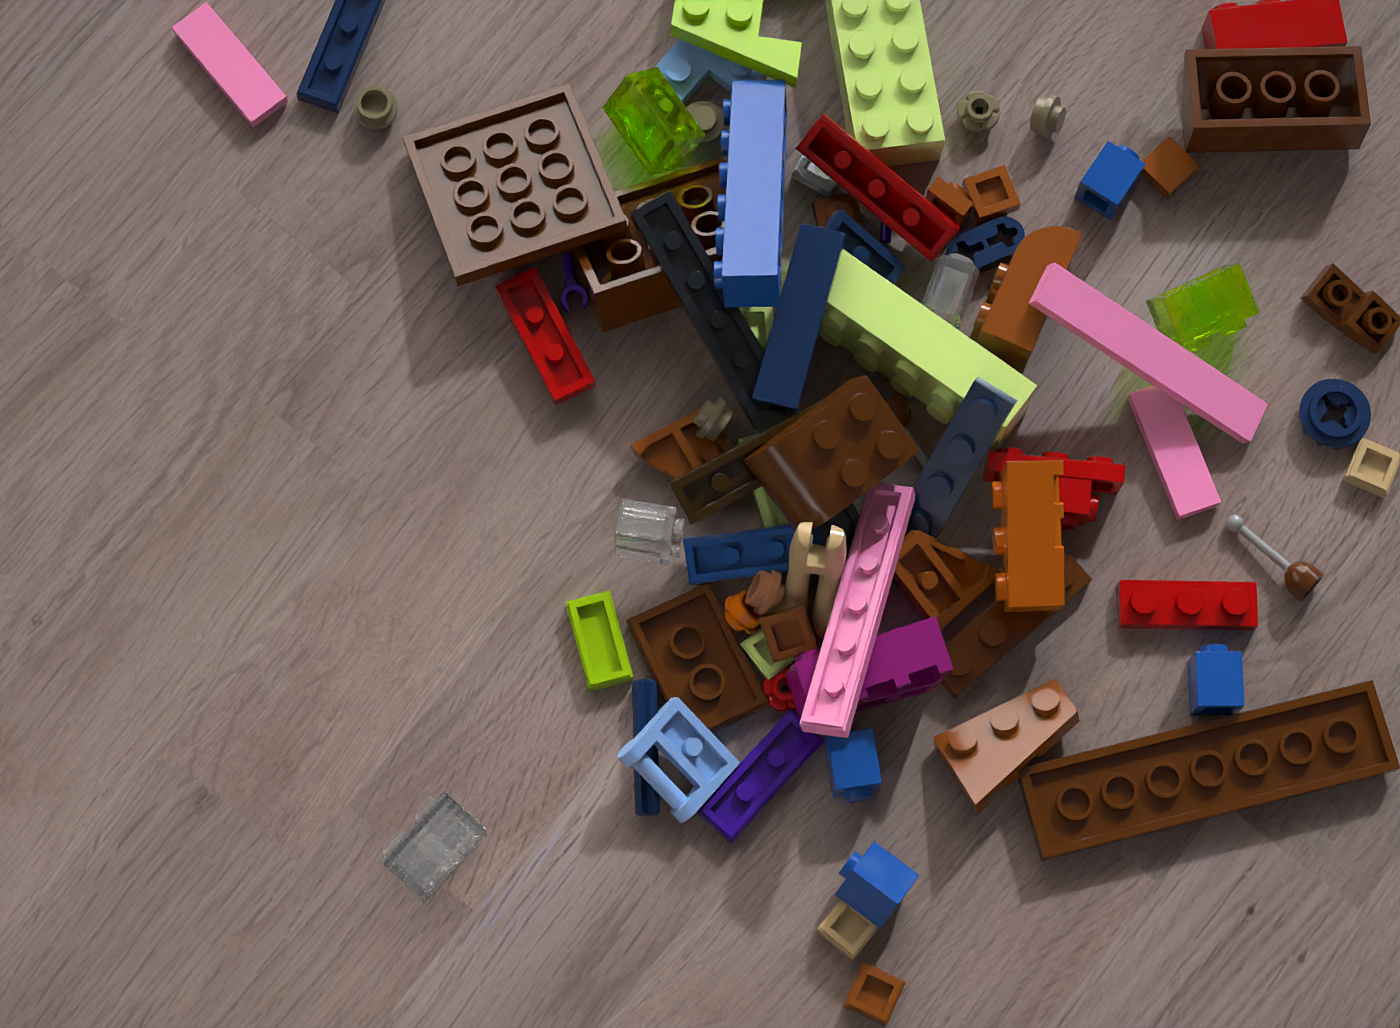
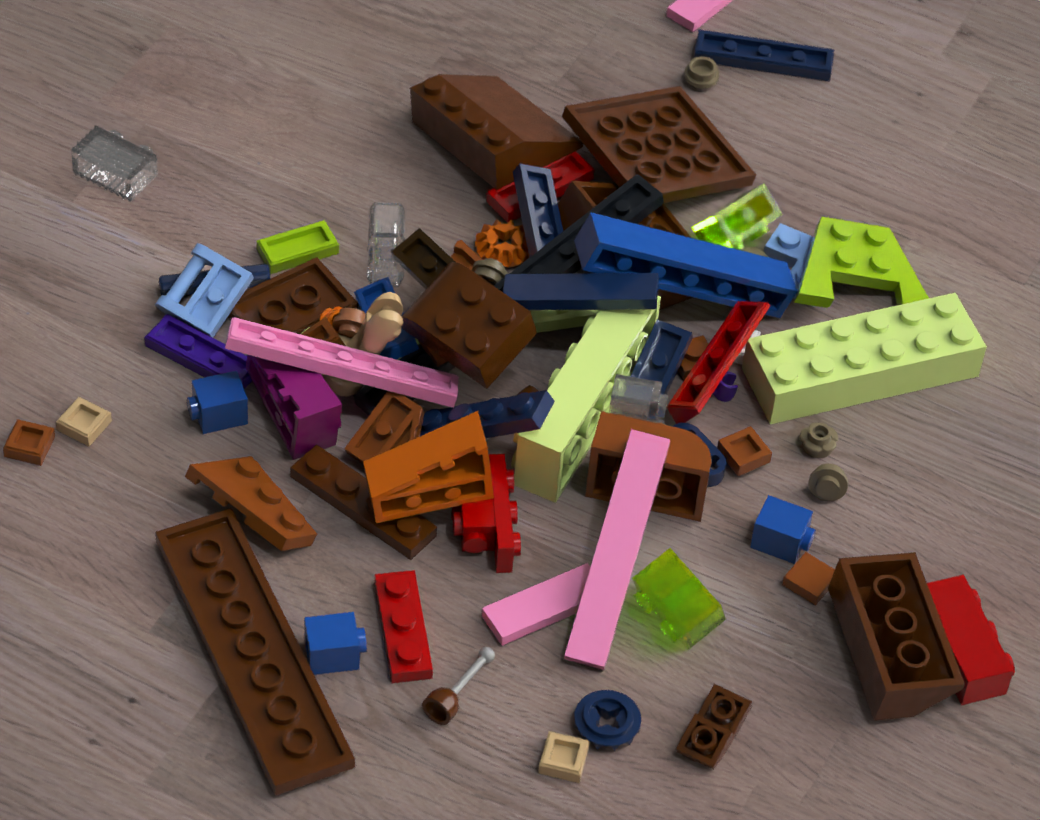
camera: 80 degrees right, 25 degrees down
(443, 372) = (488, 125): none -> reddish brown slope
(626, 415) = (508, 254): none -> orange gear
(628, 344) = (537, 206): none -> dark blue plate
(875, 883) = (117, 422): blue brick -> none
(951, 201) = (727, 419): dark orange plate -> none

